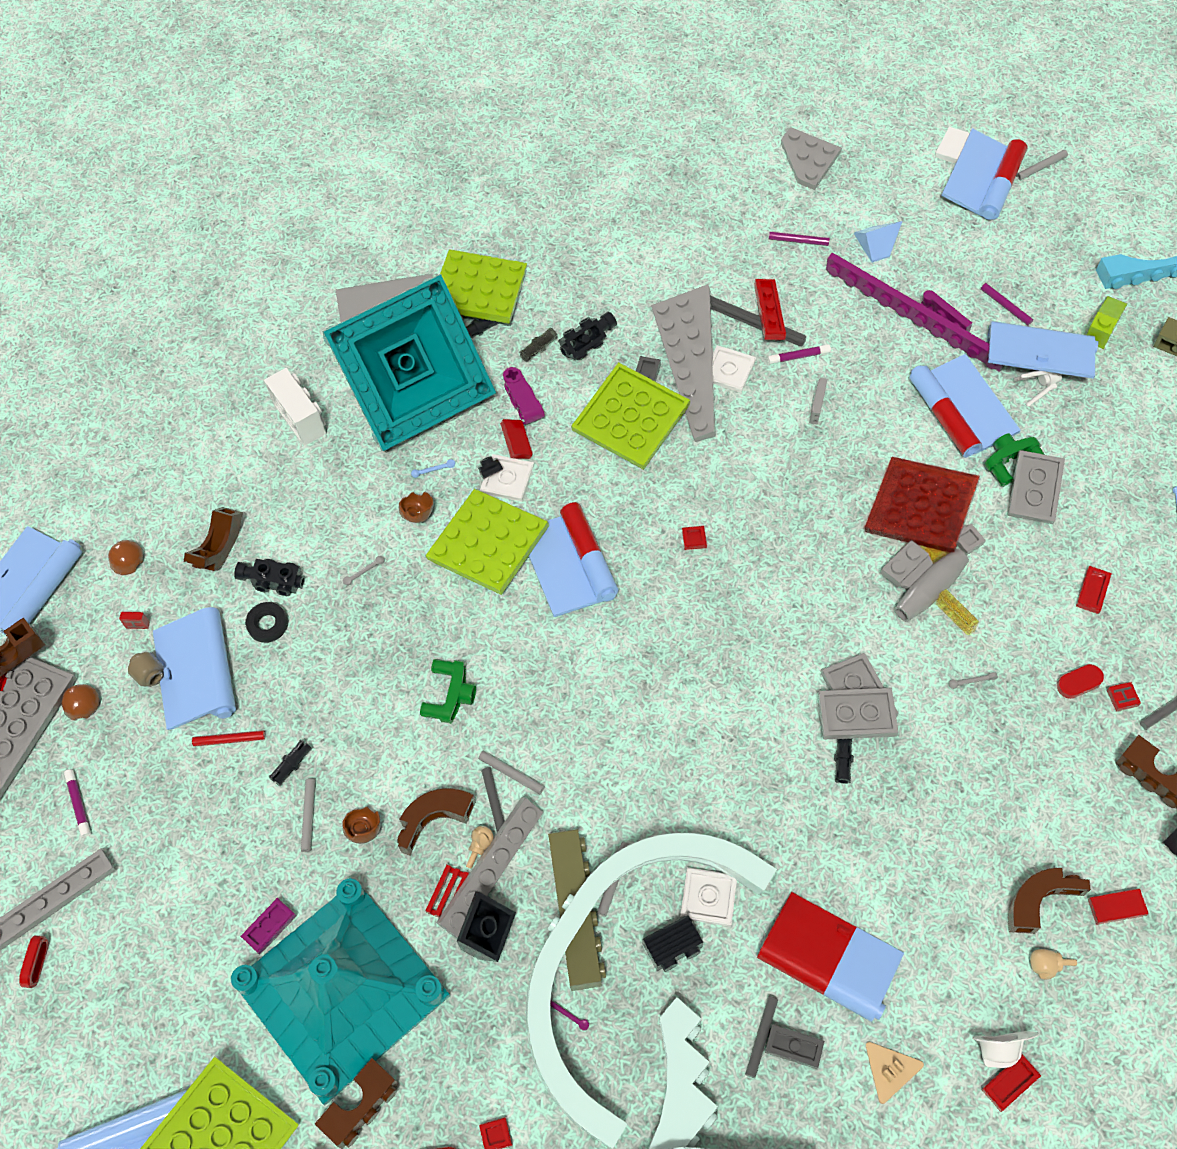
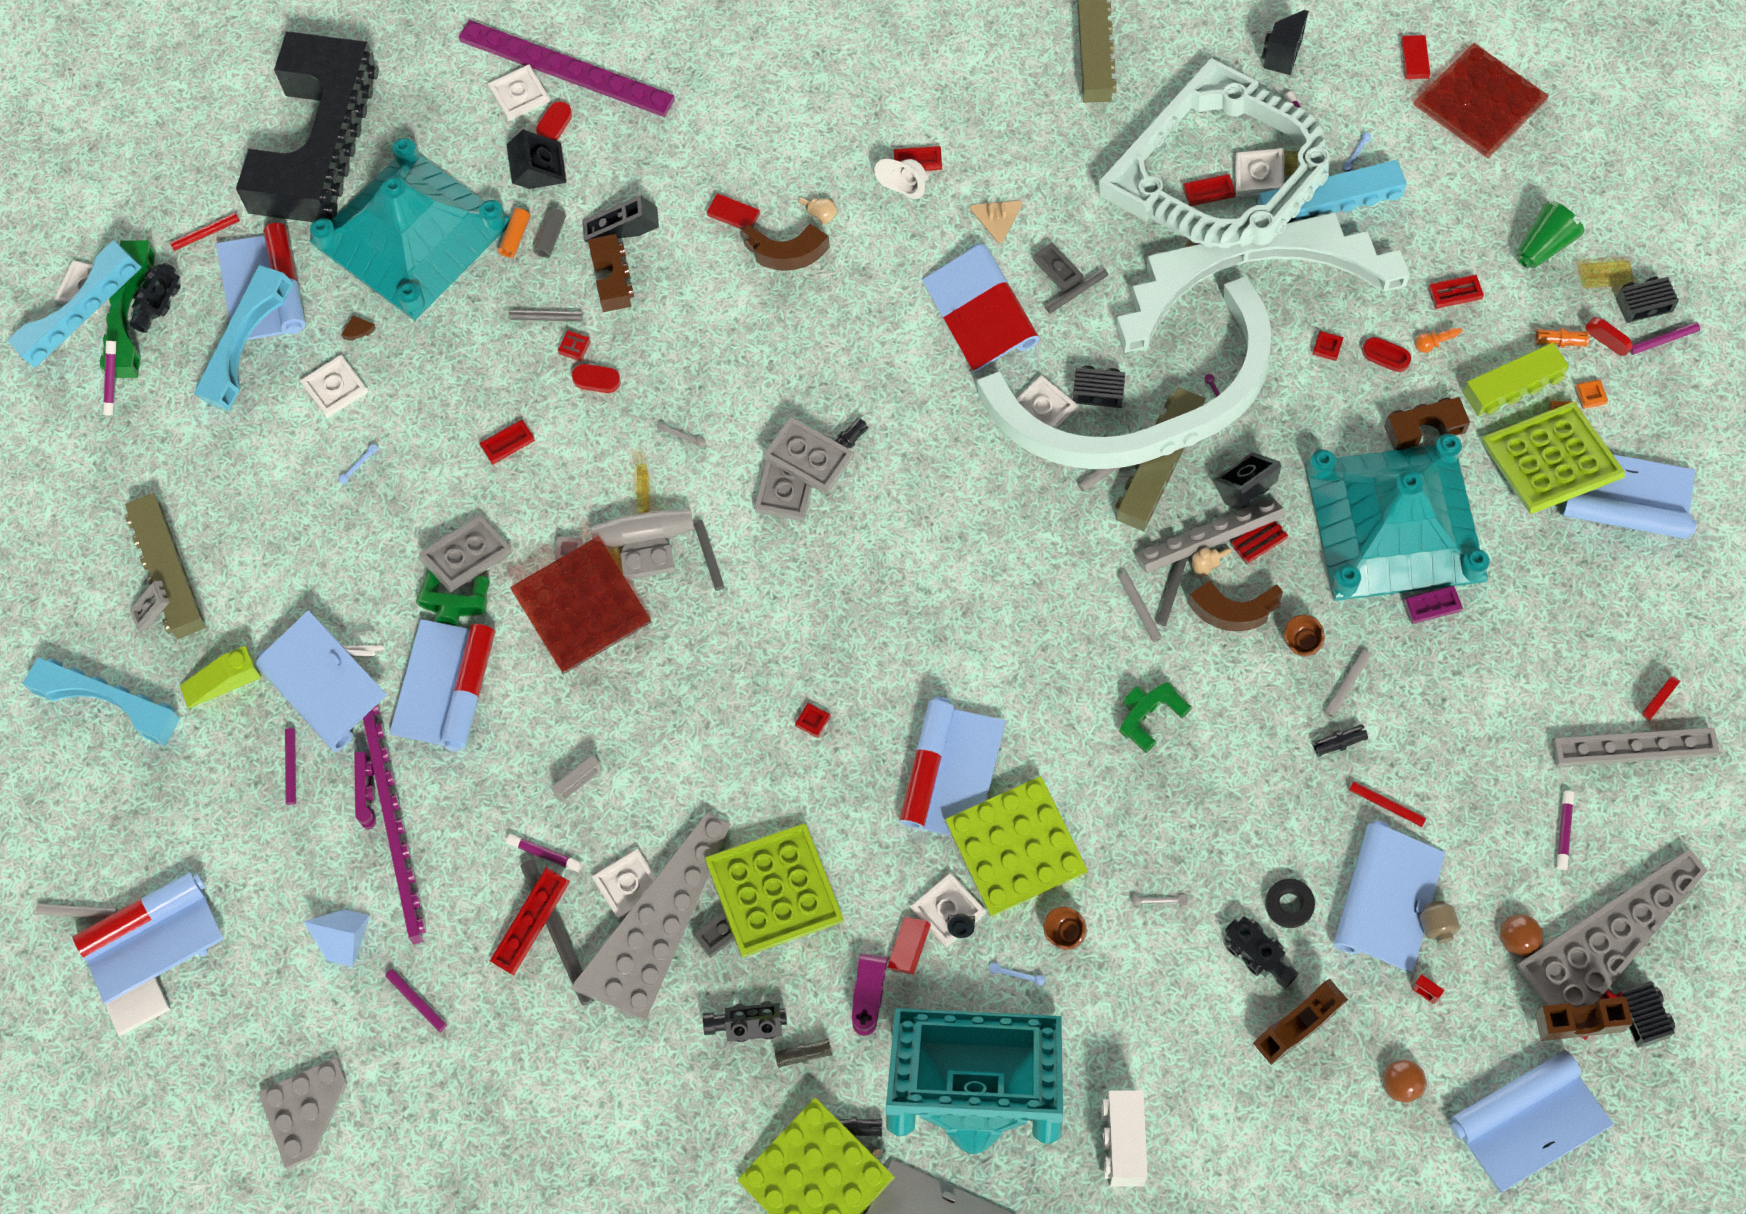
camera: 145 degrees left, 5 degrees up
(868, 603) = (709, 555): none -> dark grey bar

